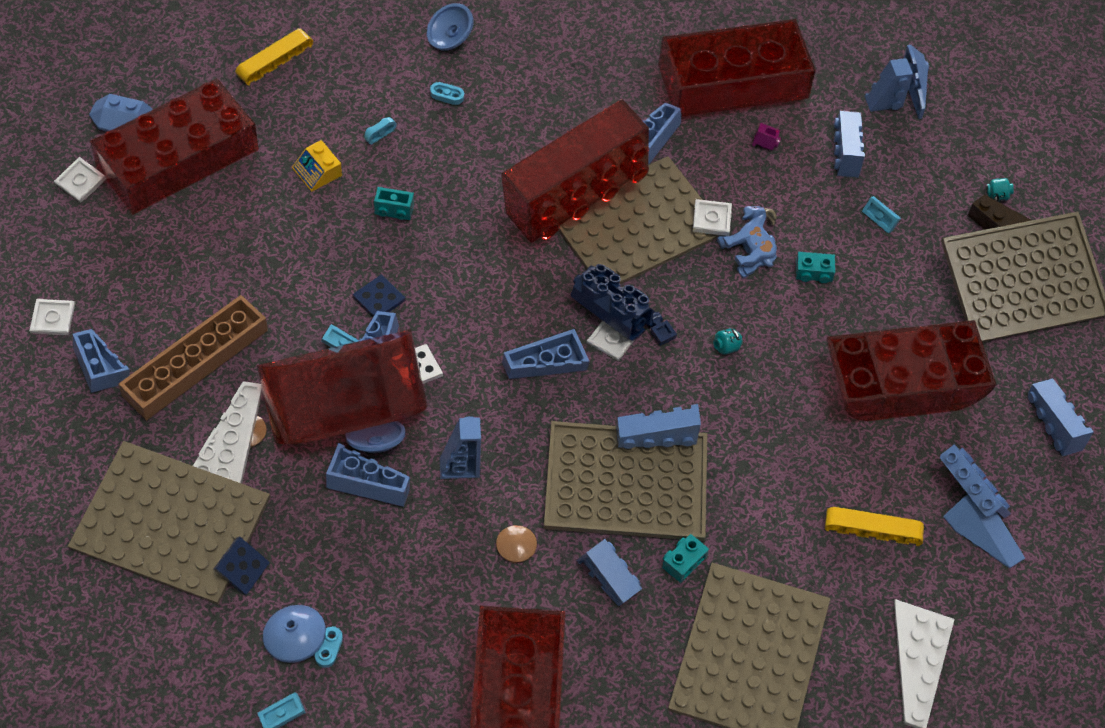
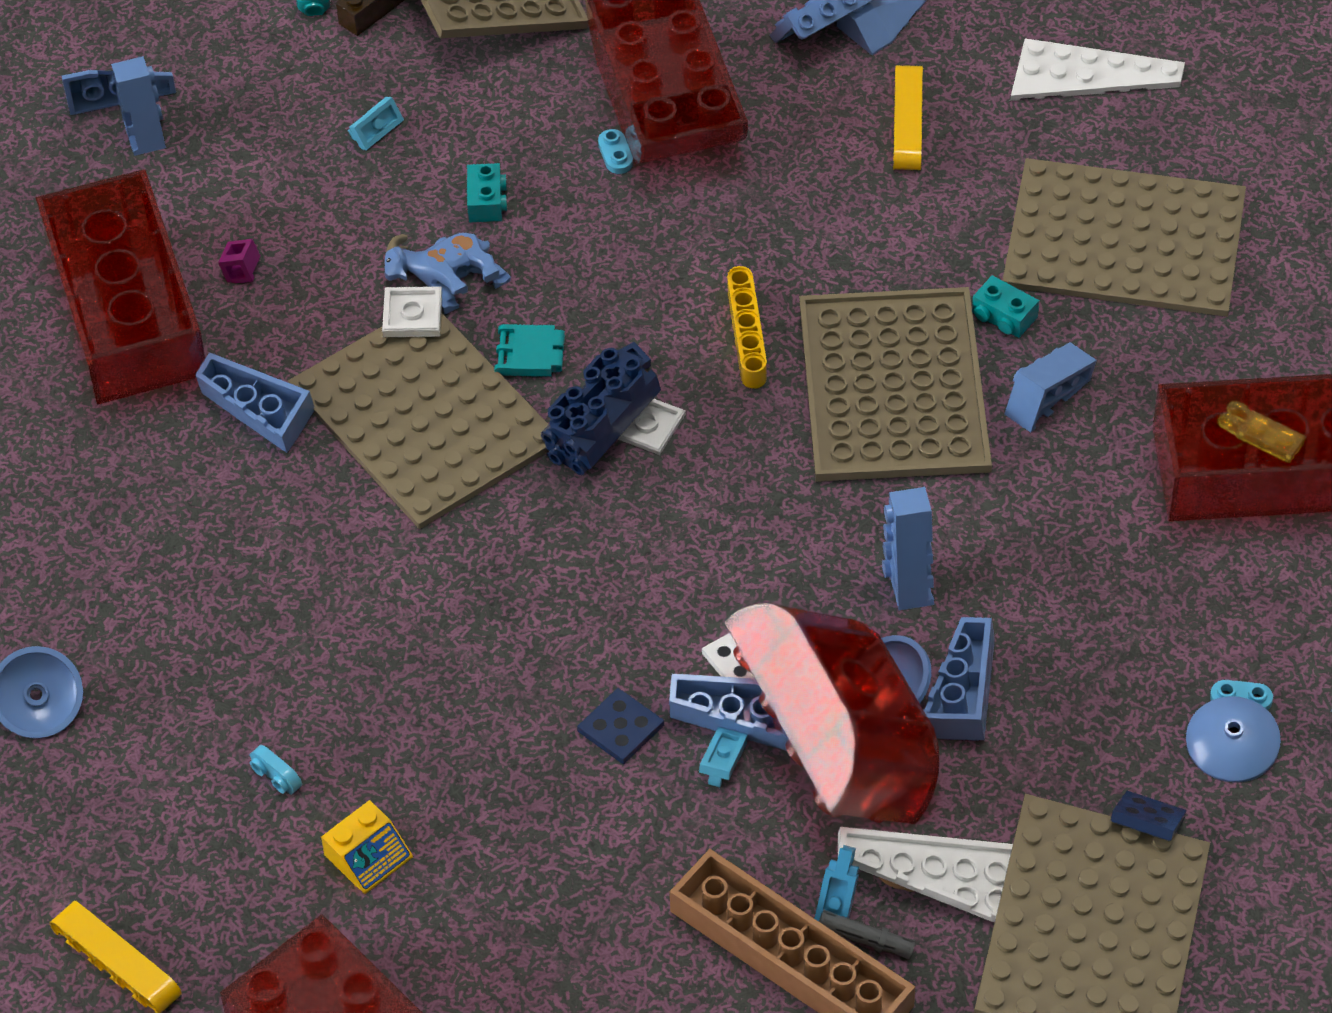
camera: 90 degrees left, 5 degrees down
(196, 396) = (868, 935): none -> dark grey pin
(223, 382) = (839, 884): none -> dark azure hinge
(394, 203) = (438, 721): teal brick -> none
(447, 94) = (180, 689): medium azure plate -> none
(506, 668) = (1261, 431): none -> clear yellow hinge
(516, 543) = (1023, 499): medium nougat dish -> none
(548, 356) = (704, 487): medium blue wedge -> none
(576, 171) = (384, 446): clear red brick -> none
(659, 428) = (816, 334): medium blue wedge -> none
(678, 280) = (530, 350): none -> teal plate
(691, 395) = (747, 327): none -> yellow beam
(728, 341) = (634, 282): teal head -> none
(849, 144) = (245, 159): medium blue wedge -> none

